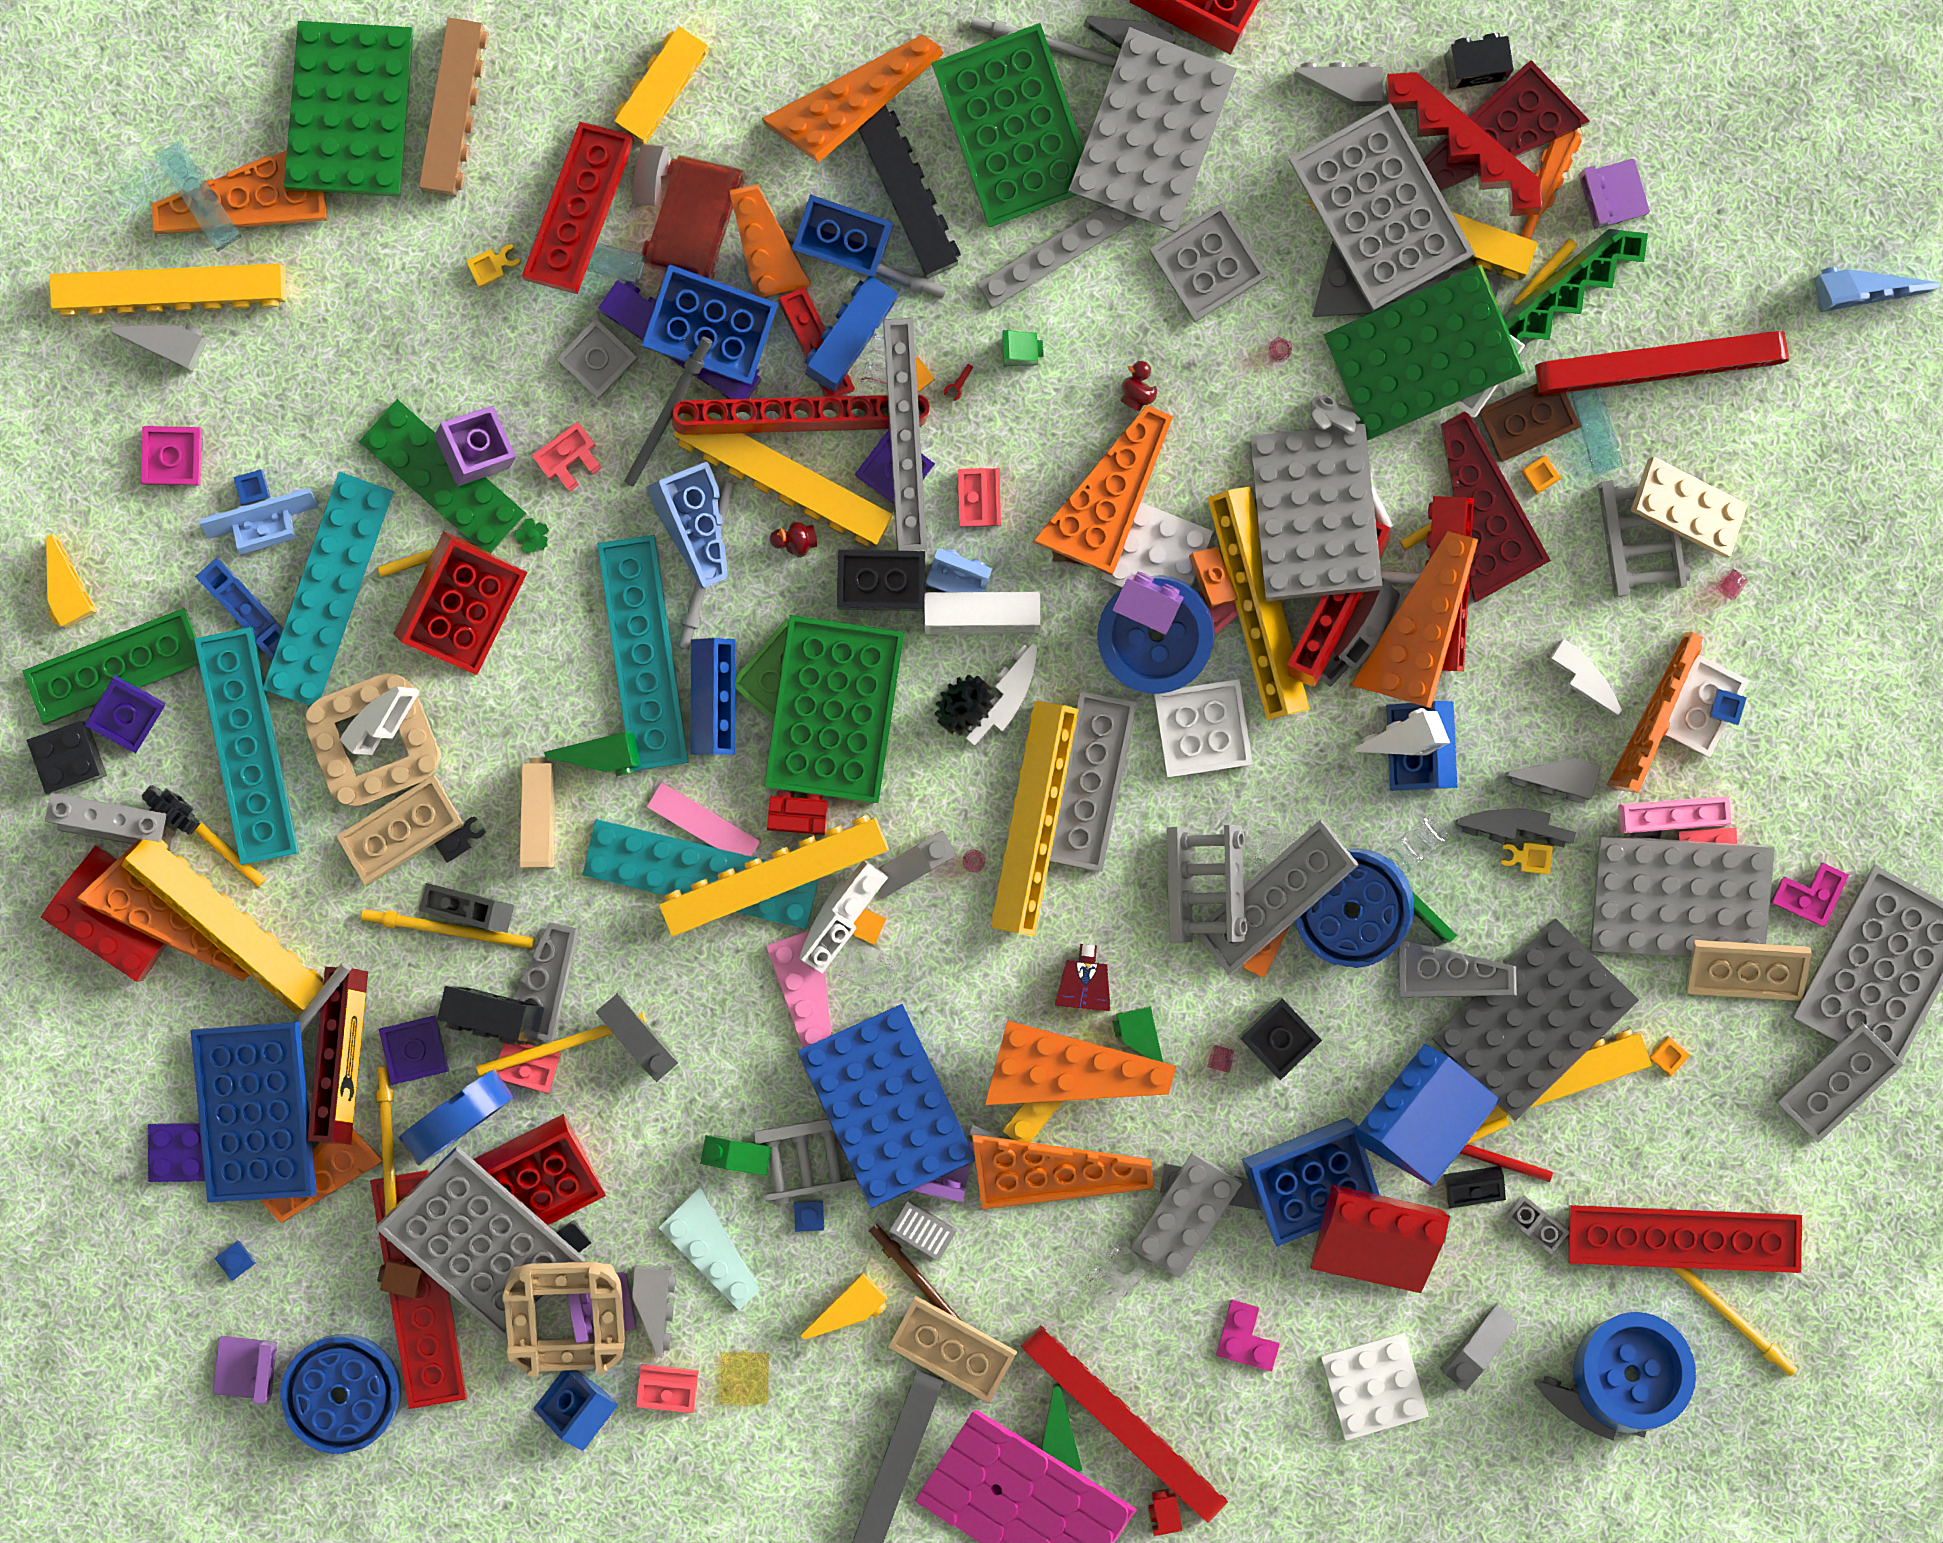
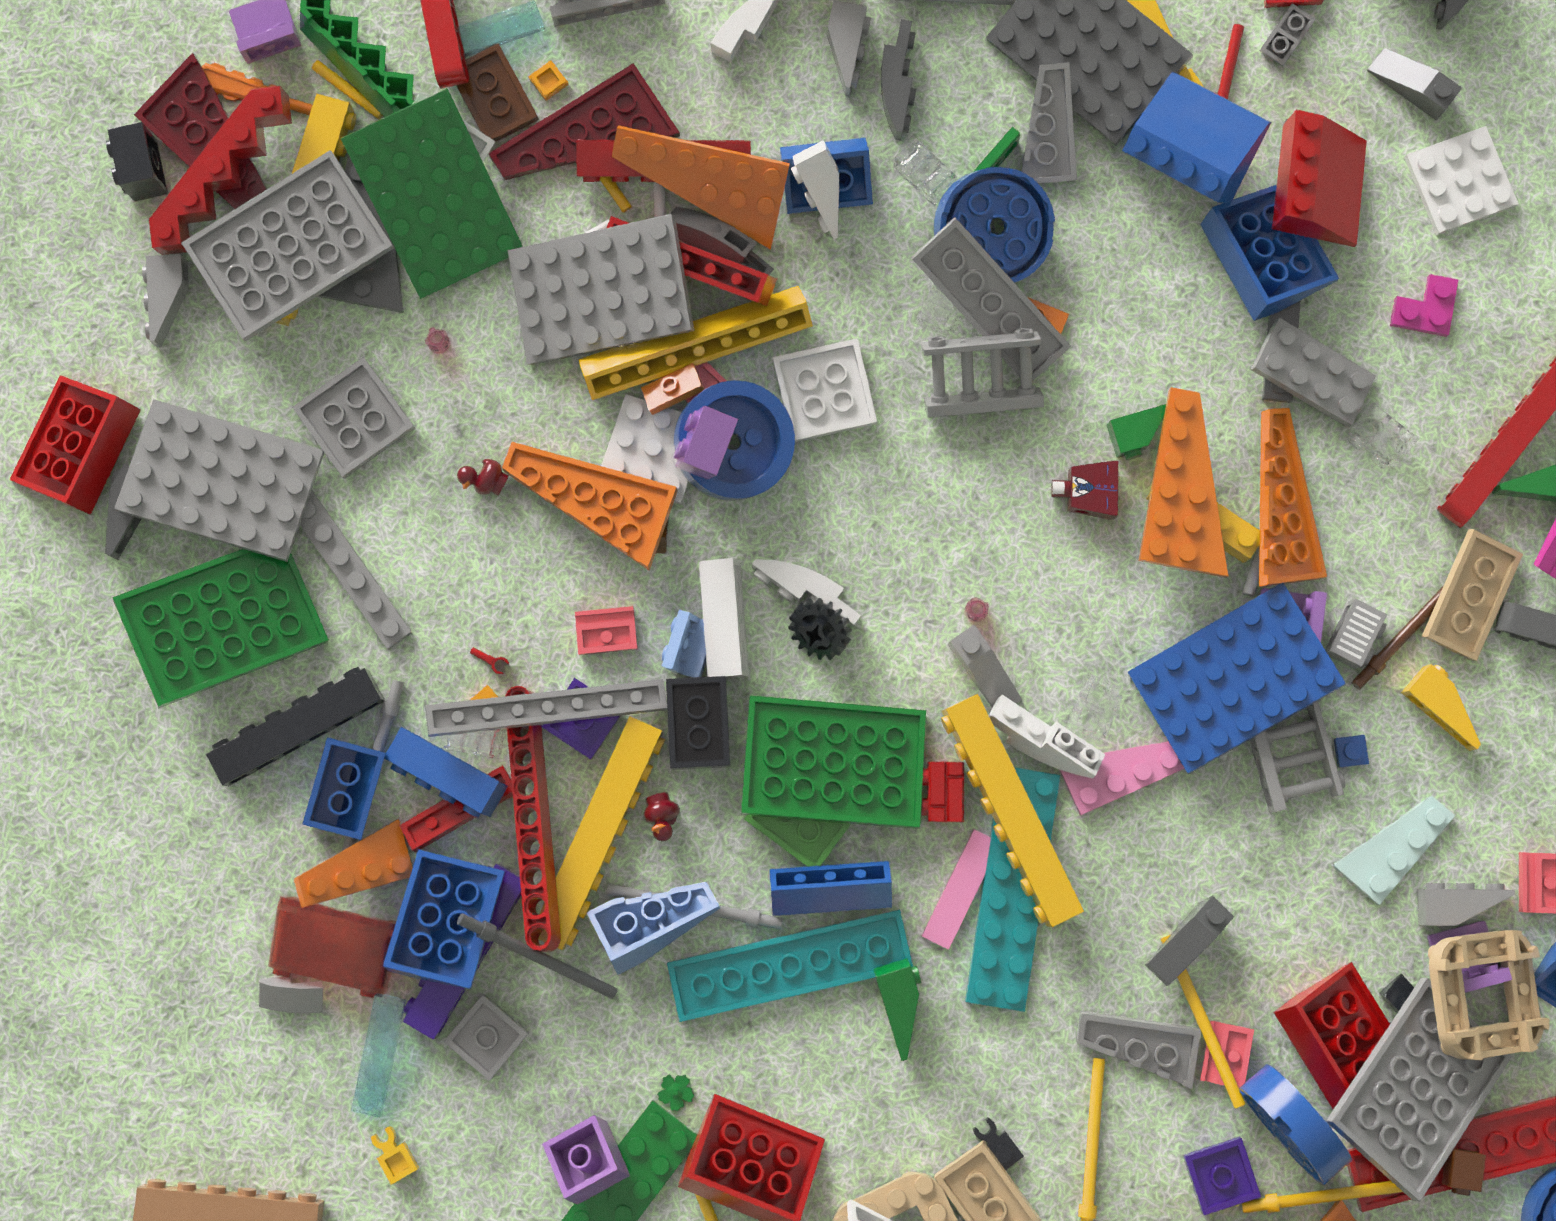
camera: 100 degrees left, 5 degrees down
(466, 908) = (1070, 1130): dark grey slope -> none
(490, 1015) = (1181, 1097): black brick -> none
(537, 815) = (968, 1063): tan slope -> none
(564, 451) = (585, 1063): coral plate -> none
(578, 207) = (329, 1068): red plate -> none
(661, 84) = (196, 991): yellow brick -> none
(735, 1154) = (1299, 829): green slope -> none
(744, 1377) = (1521, 805): clear yellow piece -> none
(839, 108) = (213, 803): orange wing -> none
(869, 926) = (1051, 710): light orange tile -> none
(1000, 29) = (123, 643): light grey bar -> none
(1021, 348) = (451, 598): slope -> none
(1034, 818) = (930, 550): yellow brick -> none
(1092, 780) = (886, 497): light grey plate -> none
(1221, 1059) = (1153, 350): clear pink hose -> none
(1280, 1038) = (1129, 291): black brick -> none
(1327, 413) = (500, 286): light grey plate -> none
(1475, 1187) = (1255, 93): black slope -> none
(1534, 857) = (927, 62): yellow plate -> none

